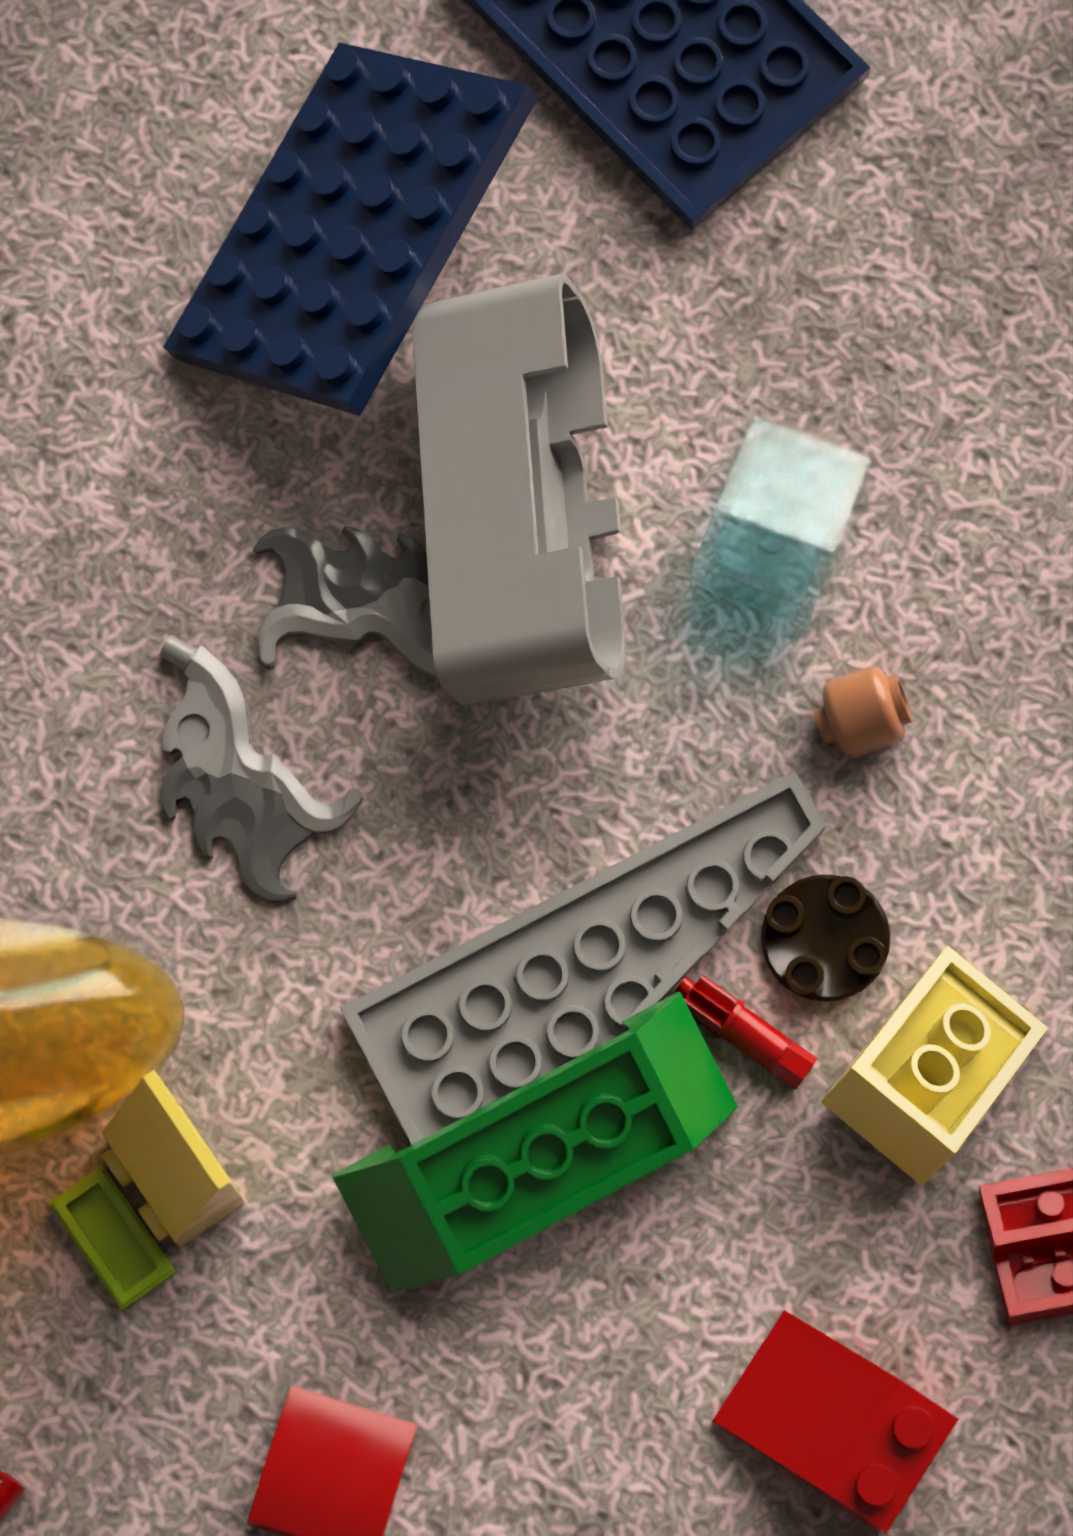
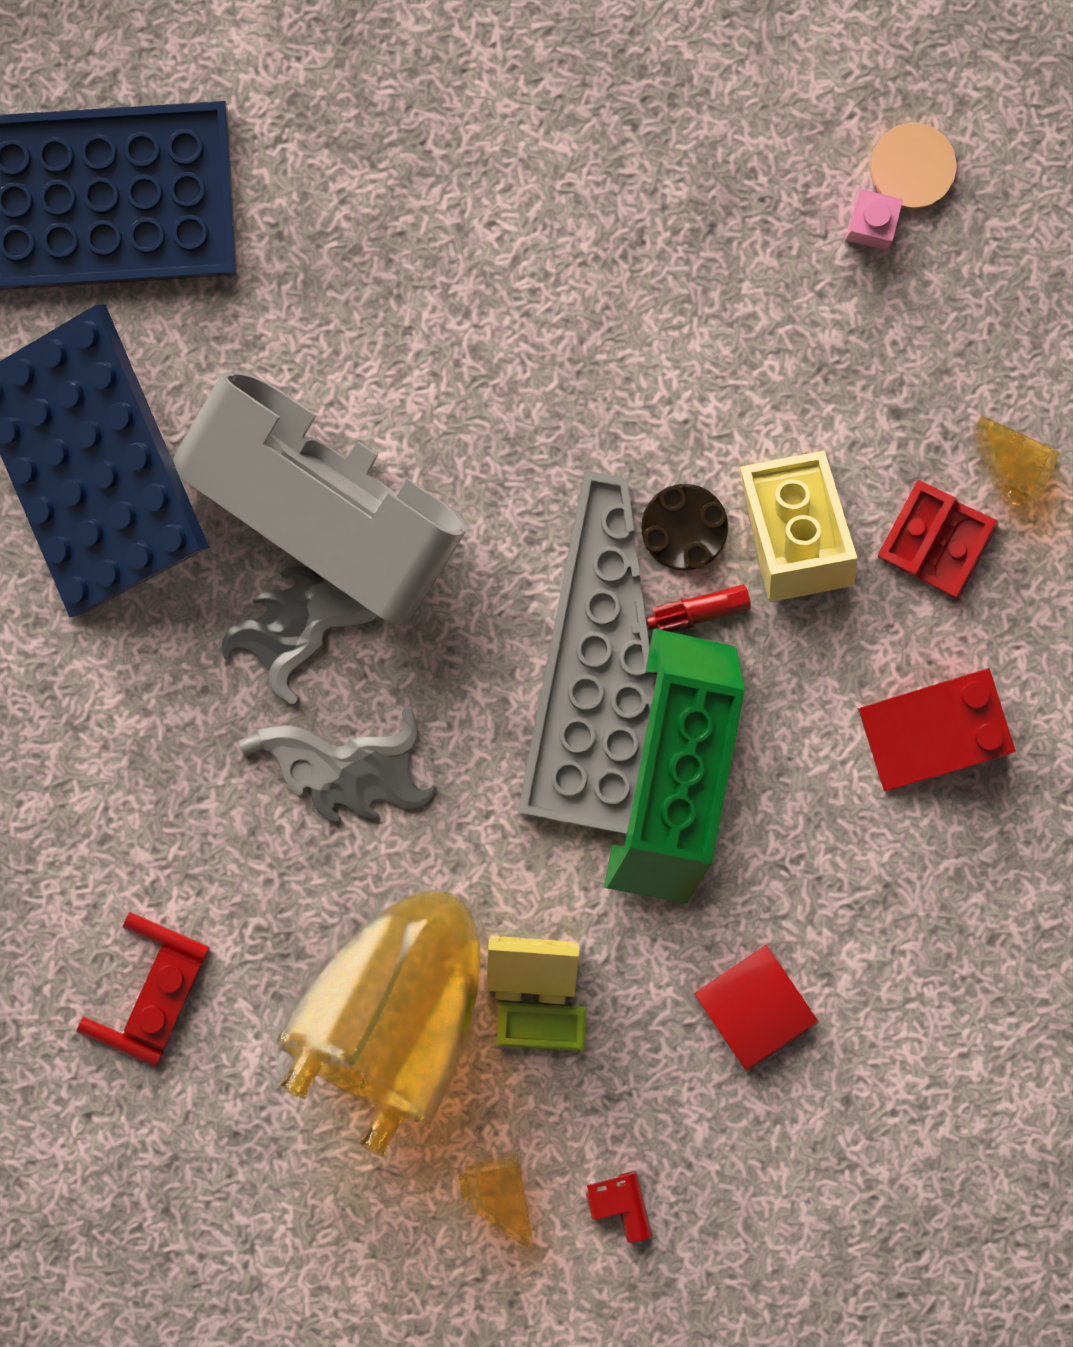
camera: 50 degrees left, 10 degrees up
(779, 522) = (441, 362): clear light blue slope -> none
(863, 712) = (582, 407): nougat head -> none

